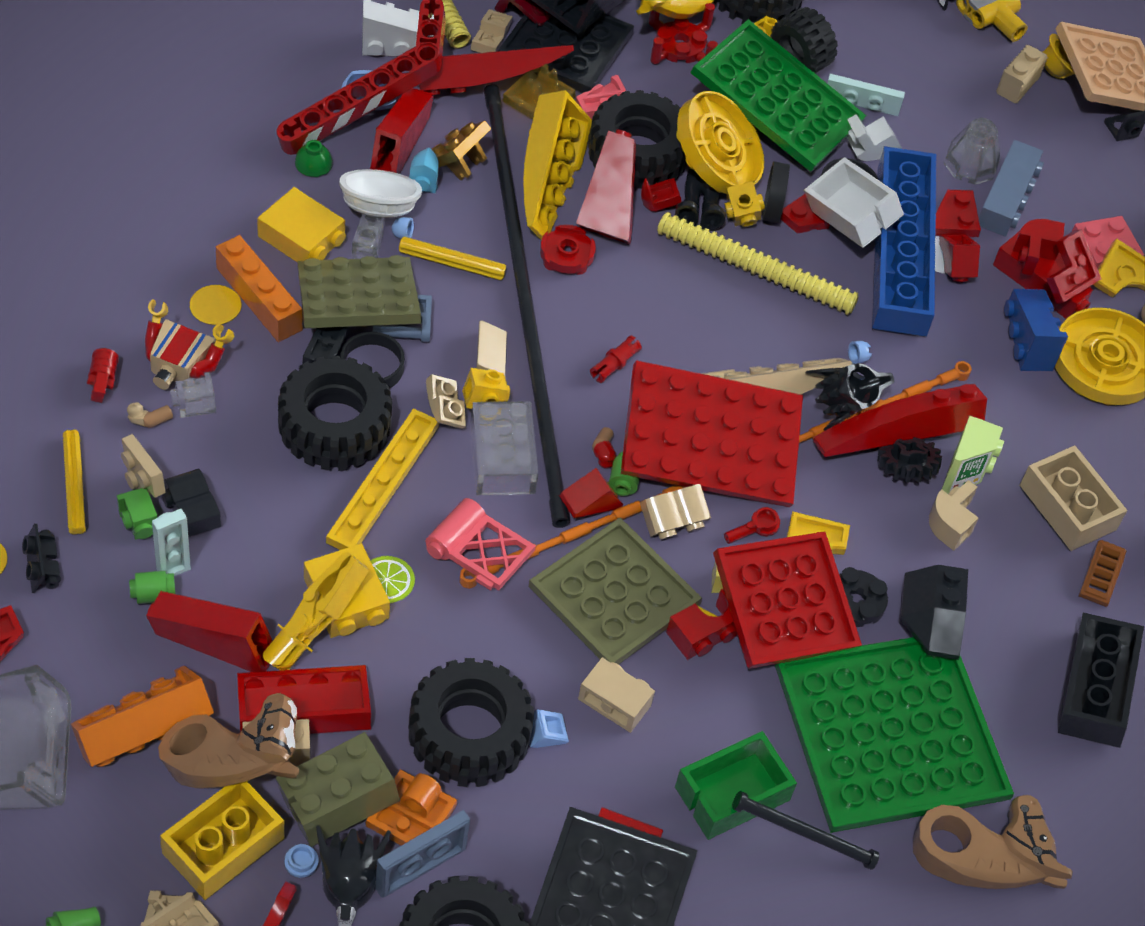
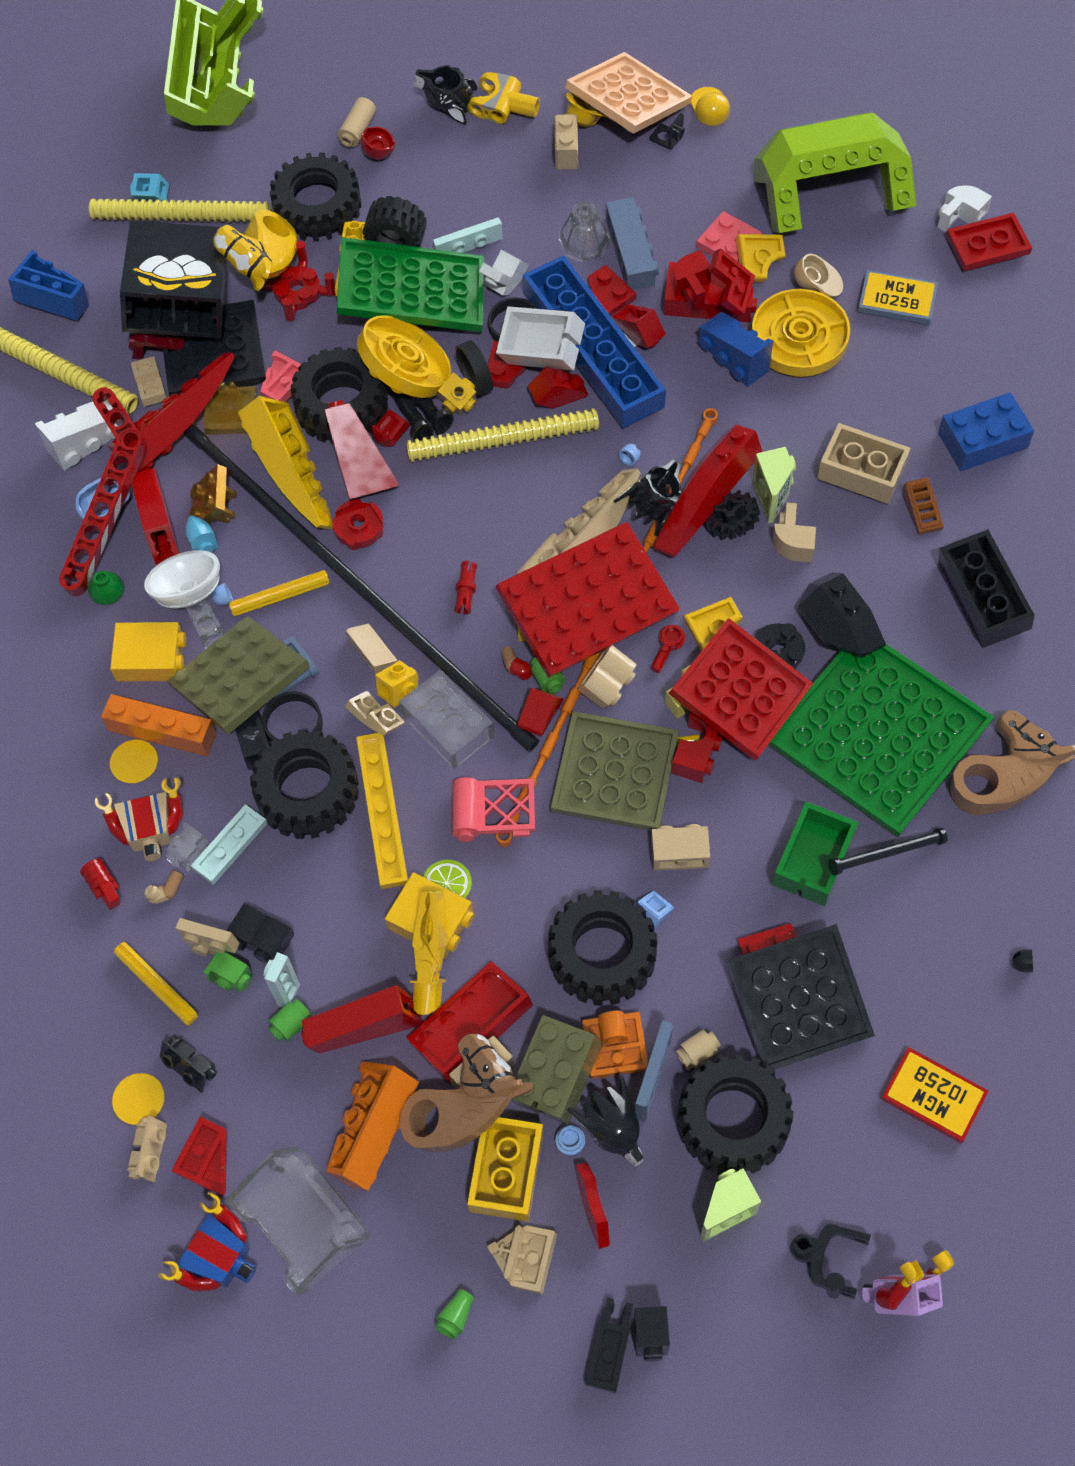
camera: 25 degrees left, 10 degrees up
(231, 418) = (229, 844): none -> light aqua plate
(482, 866) = (698, 1050): none -> tan brick
(839, 257) = (557, 388): none -> red slope

